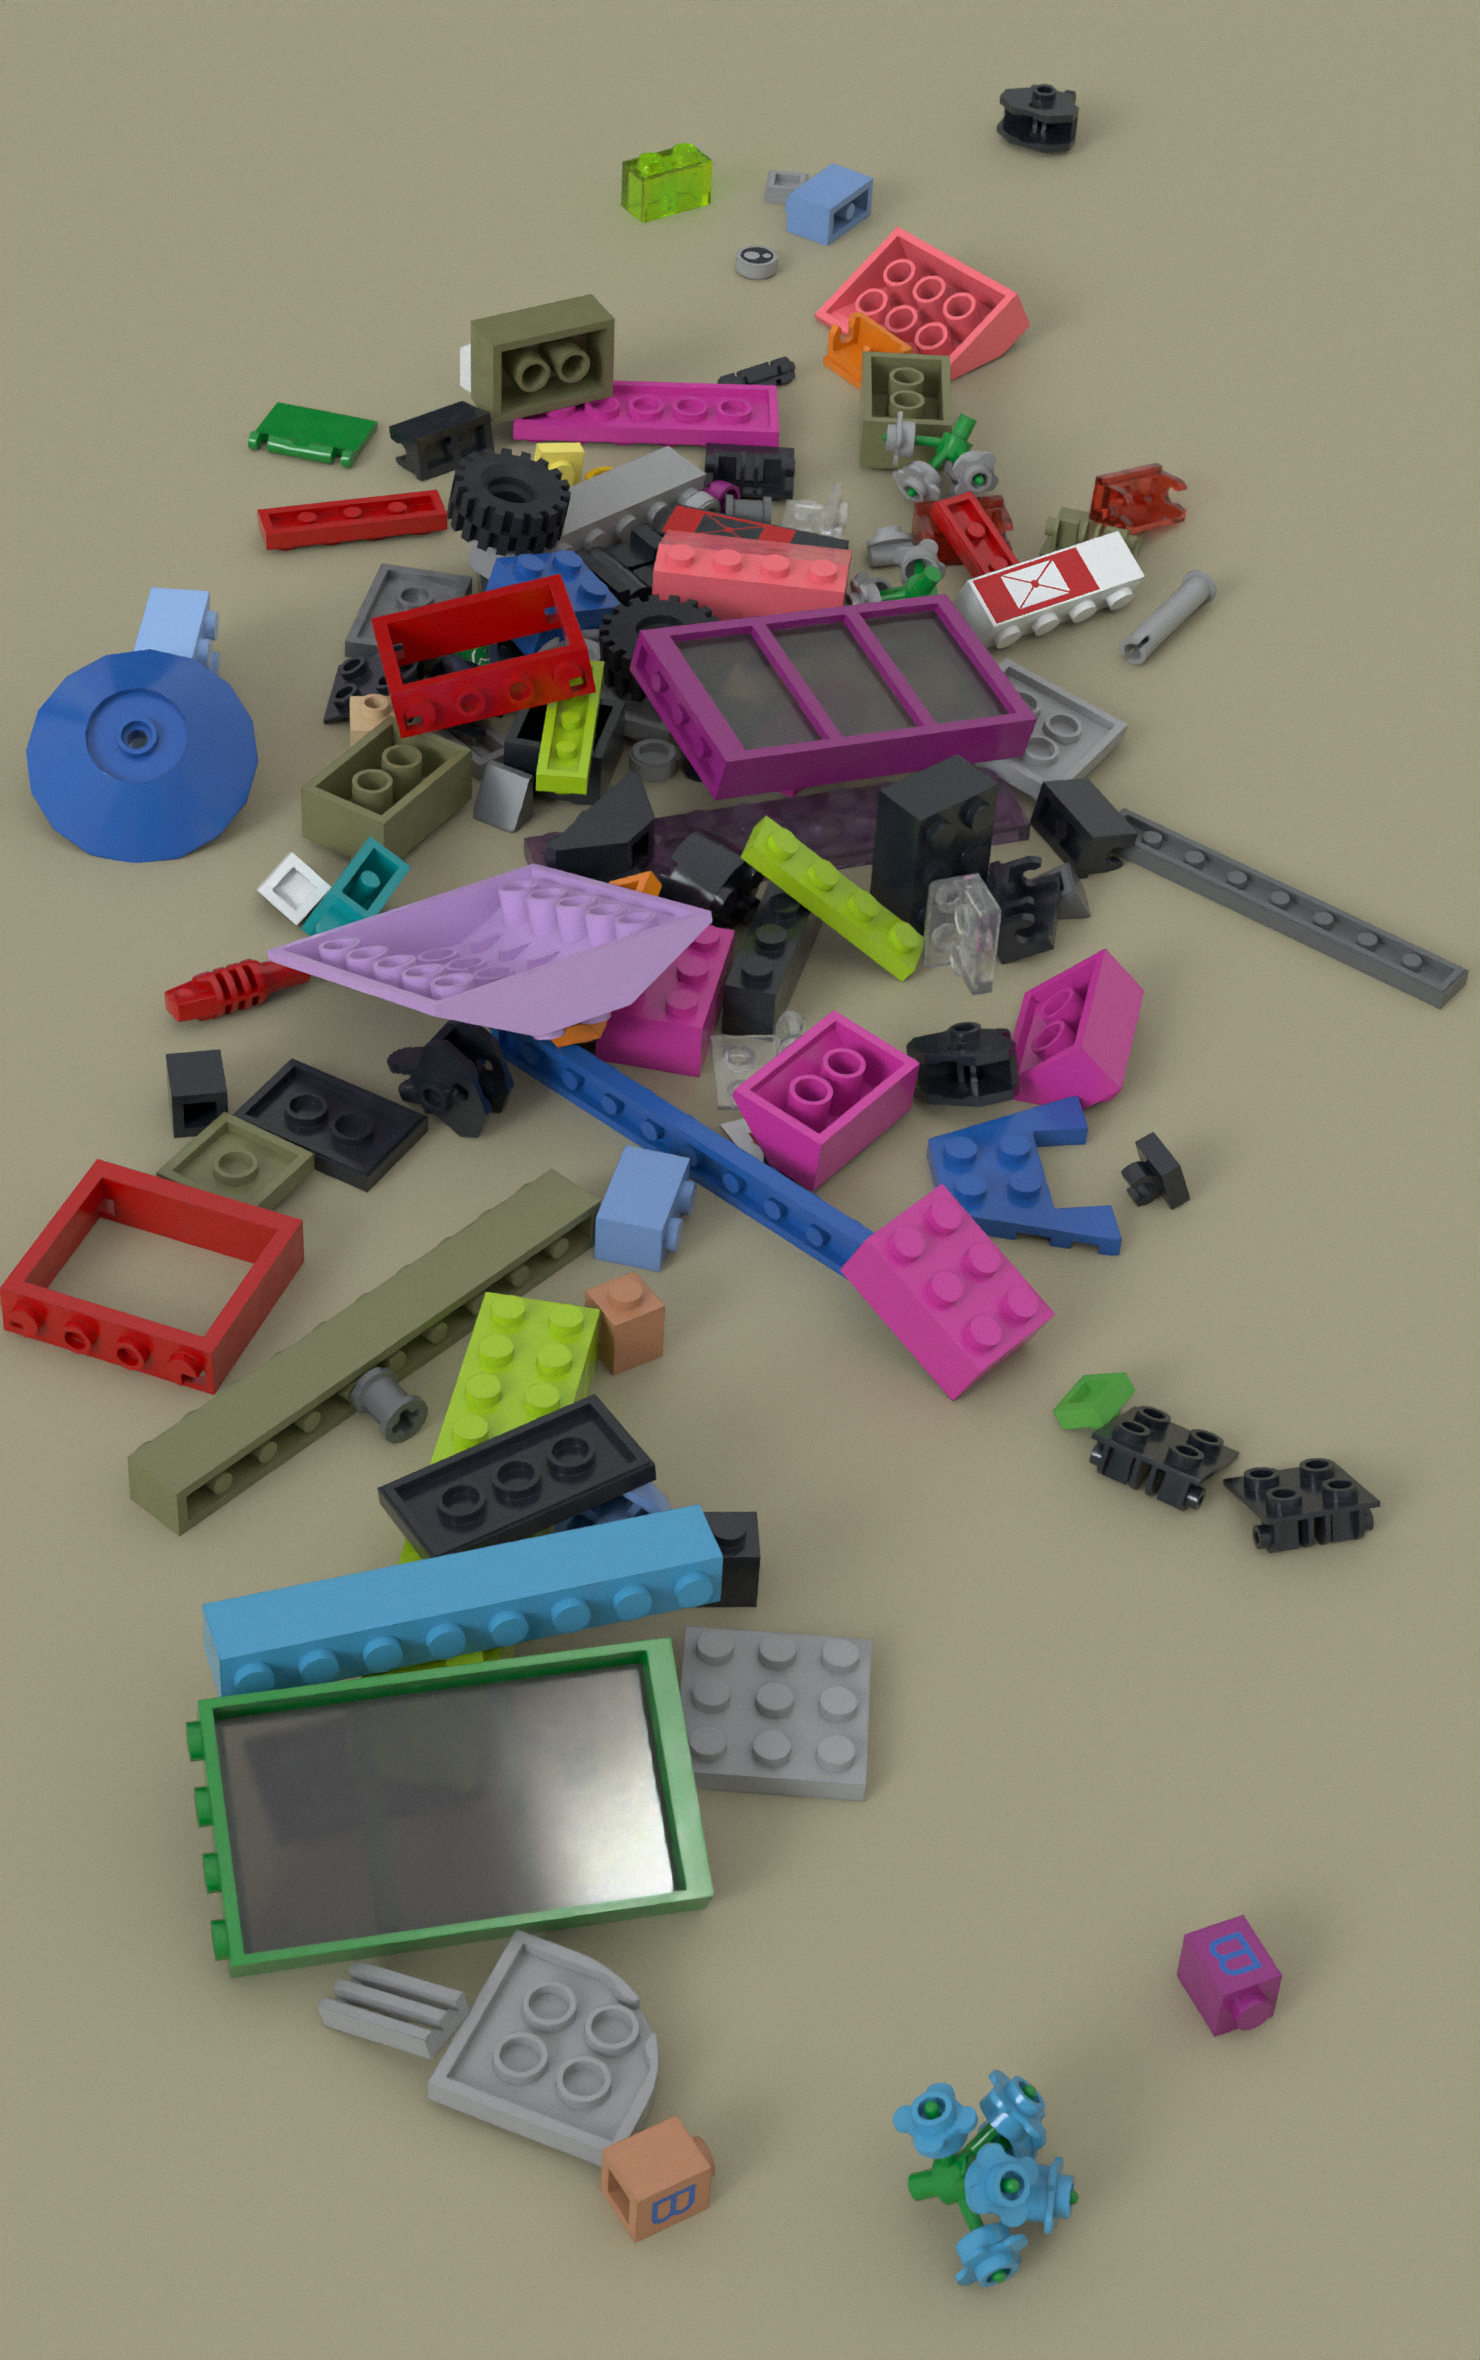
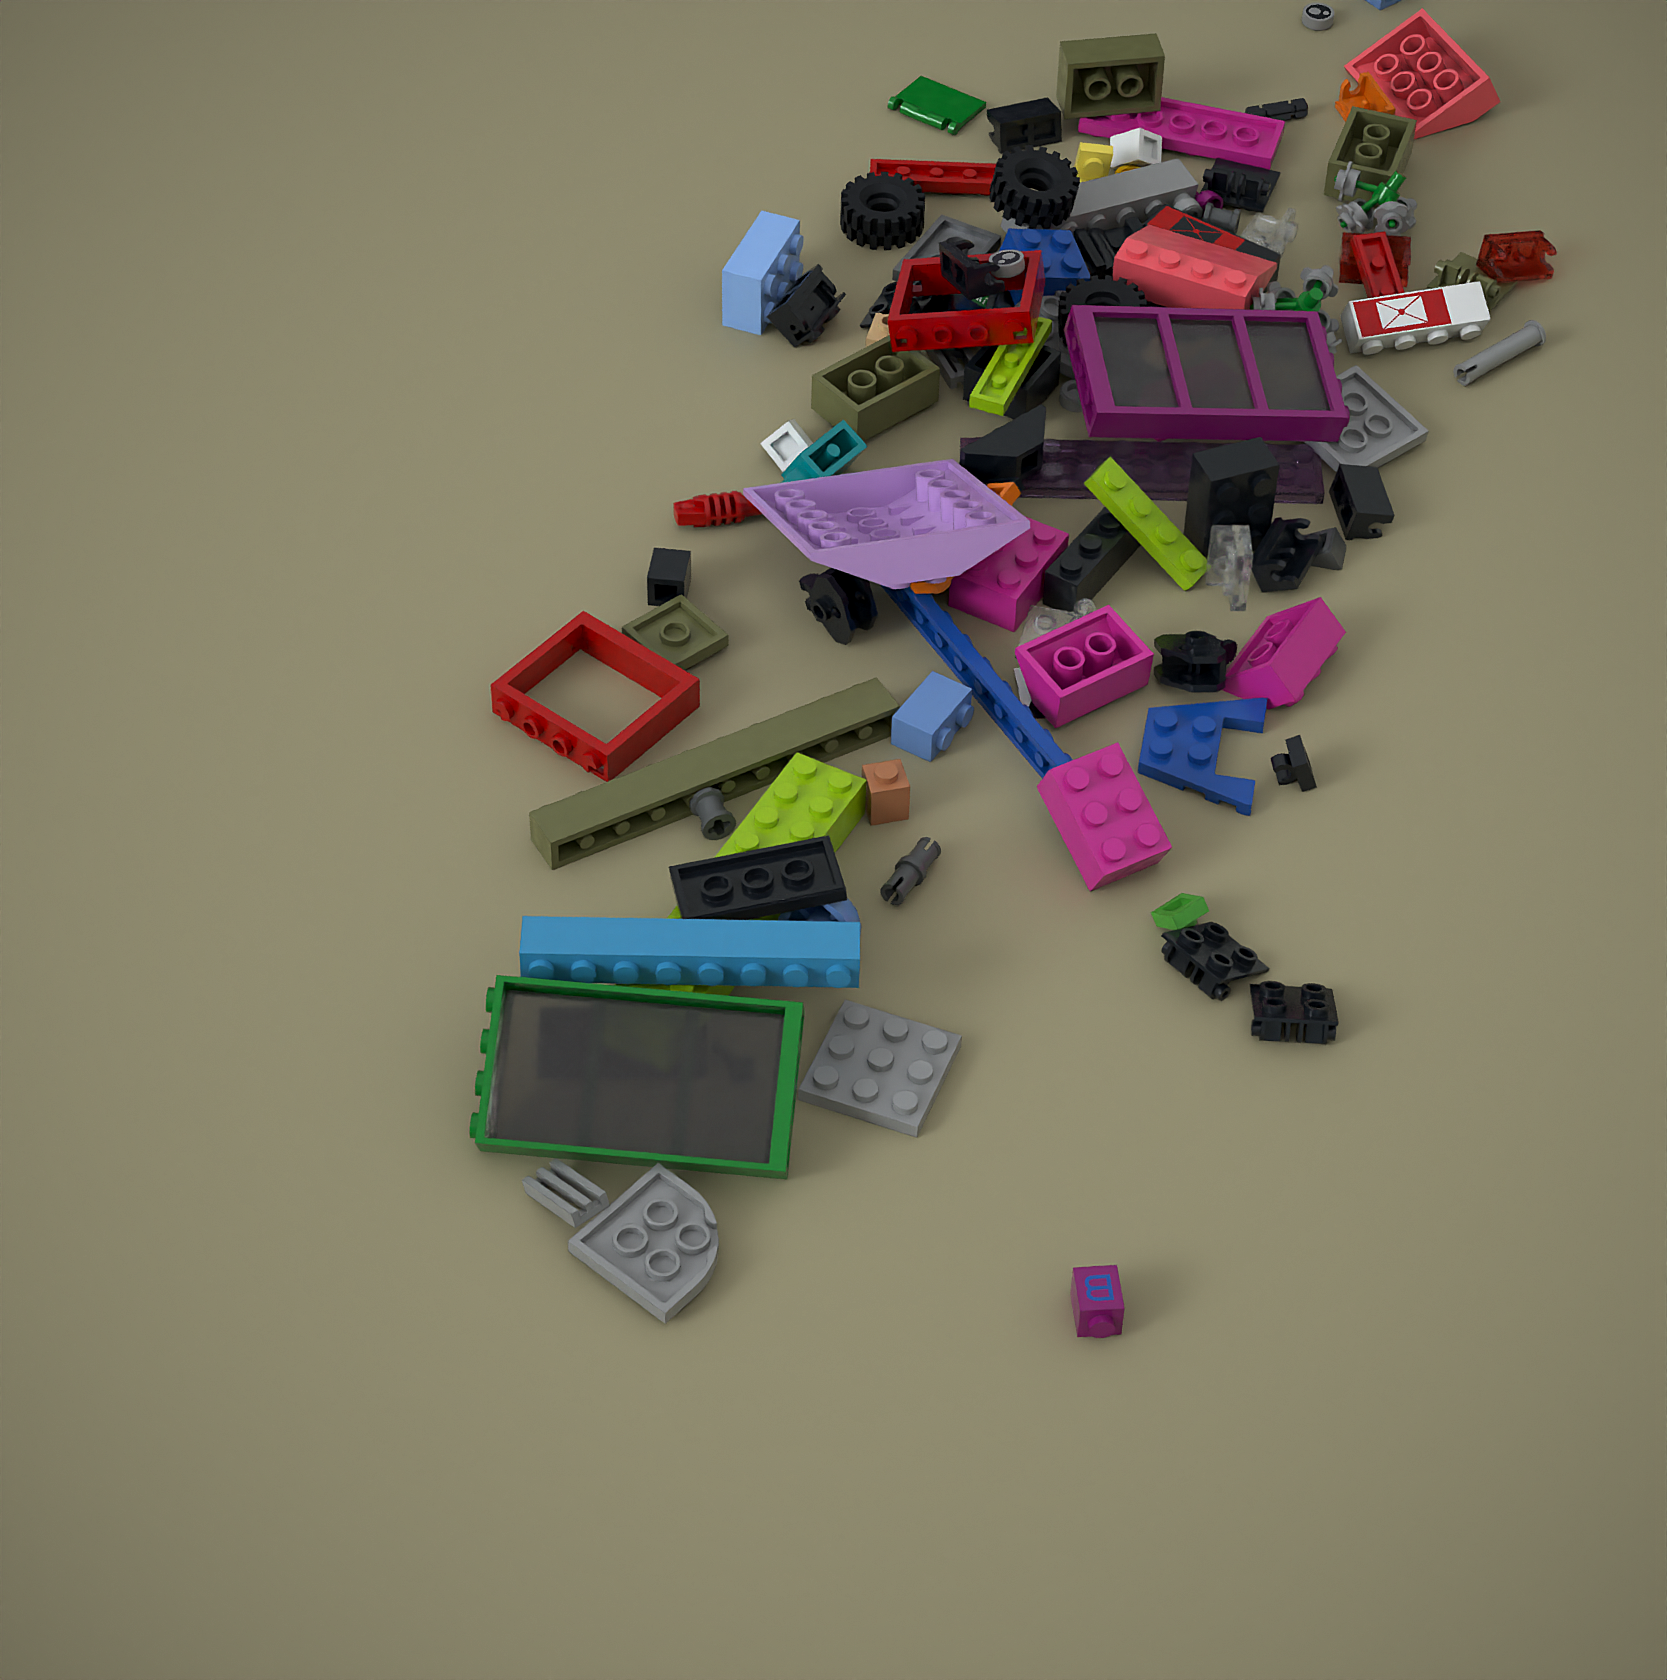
camera: 20 degrees right, 5 degrees up
(149, 798) = (721, 362): blue dish -> none
(262, 696) = (806, 307): none -> black hinge
(299, 571) = (882, 210): none -> black tyre
(345, 1126) = (753, 616): black tile -> none
(476, 614) = (966, 272): none -> black hinge
(504, 797) = (955, 408): dark grey slope -> none
(523, 596) = (1010, 263): none -> light grey tile
(605, 443) = (1136, 148): none -> white panel
(657, 2178) = (684, 1331): nougat brick -> none
(701, 1425) = (910, 871): none -> dark grey pin
(714, 879) = (1063, 498): black brick -> none
(739, 1544) = (886, 962): black brick -> none
(884, 544) = (1316, 258): light grey plate -> none
(991, 2173) = (878, 1384): dark azure plant -> none
(1293, 913) = (1488, 594): dark grey tile -> none

